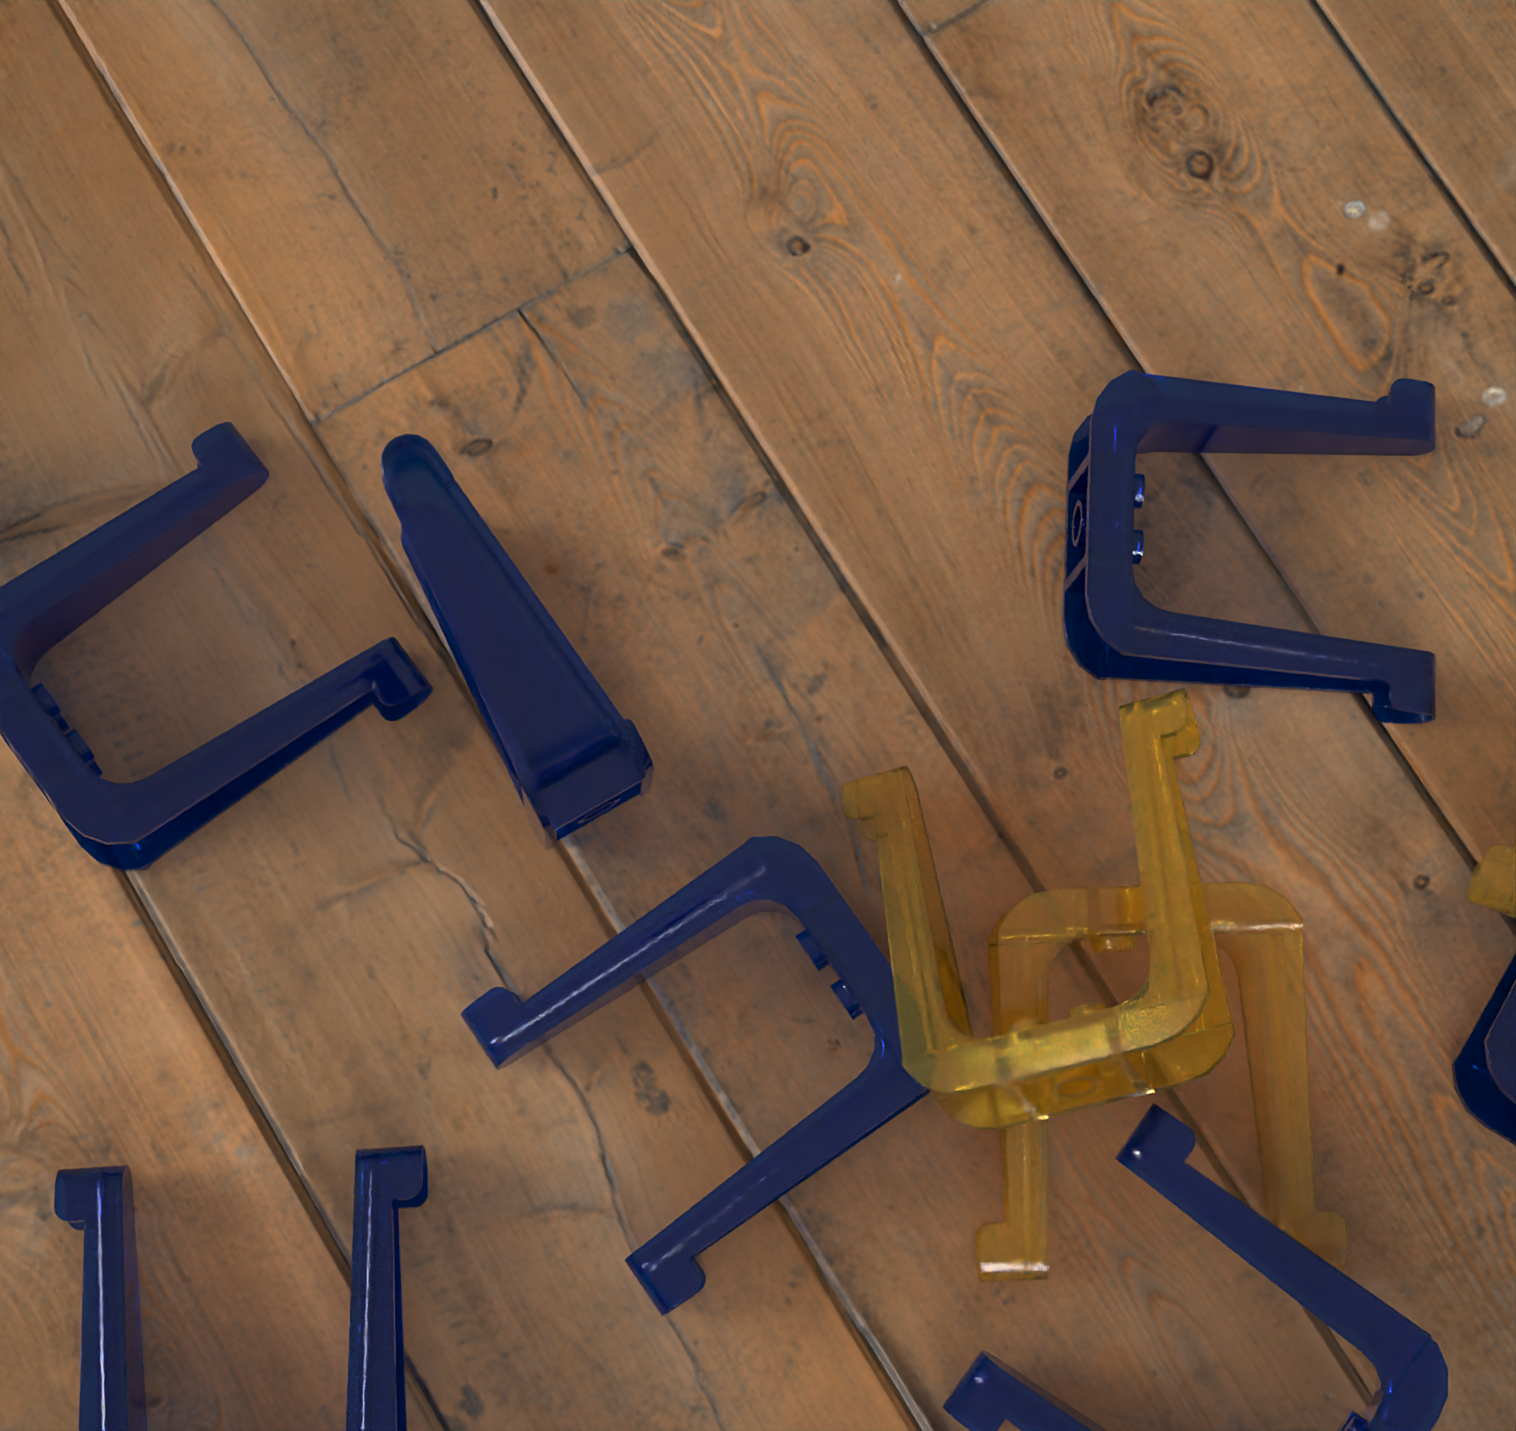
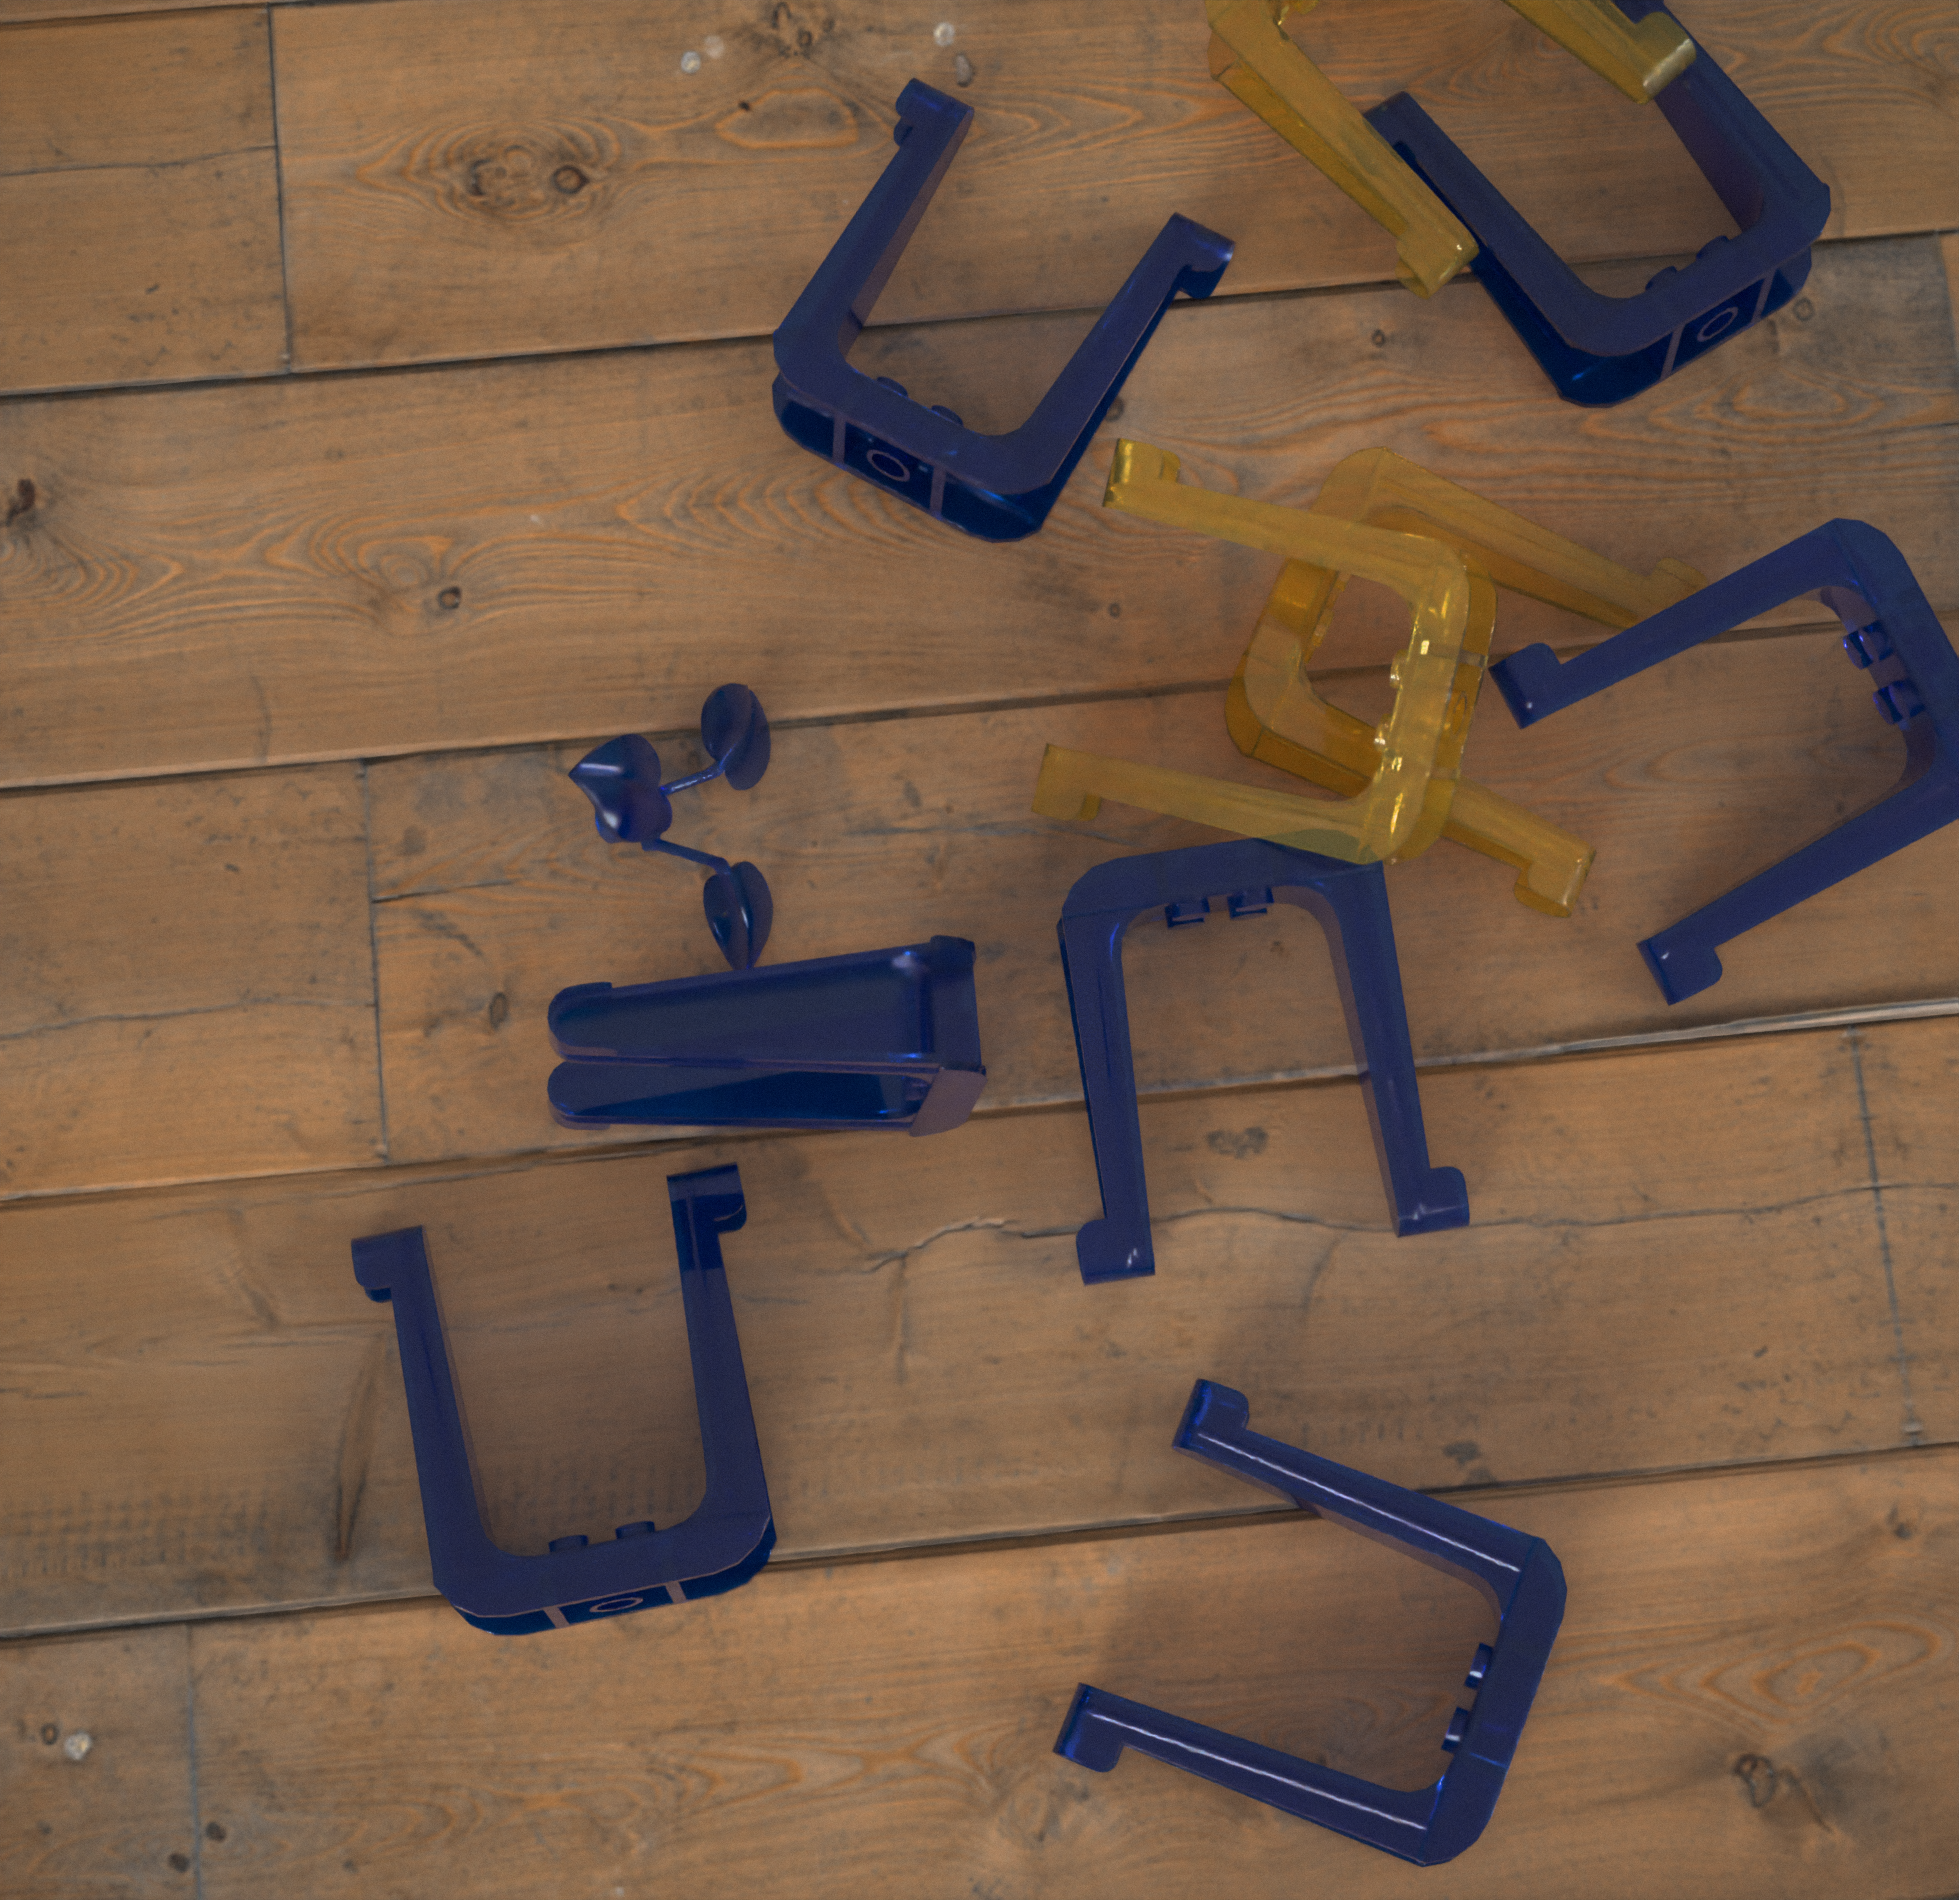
camera: 65 degrees left, 0 degrees up
(673, 445) = (632, 808): none -> clear blue plant

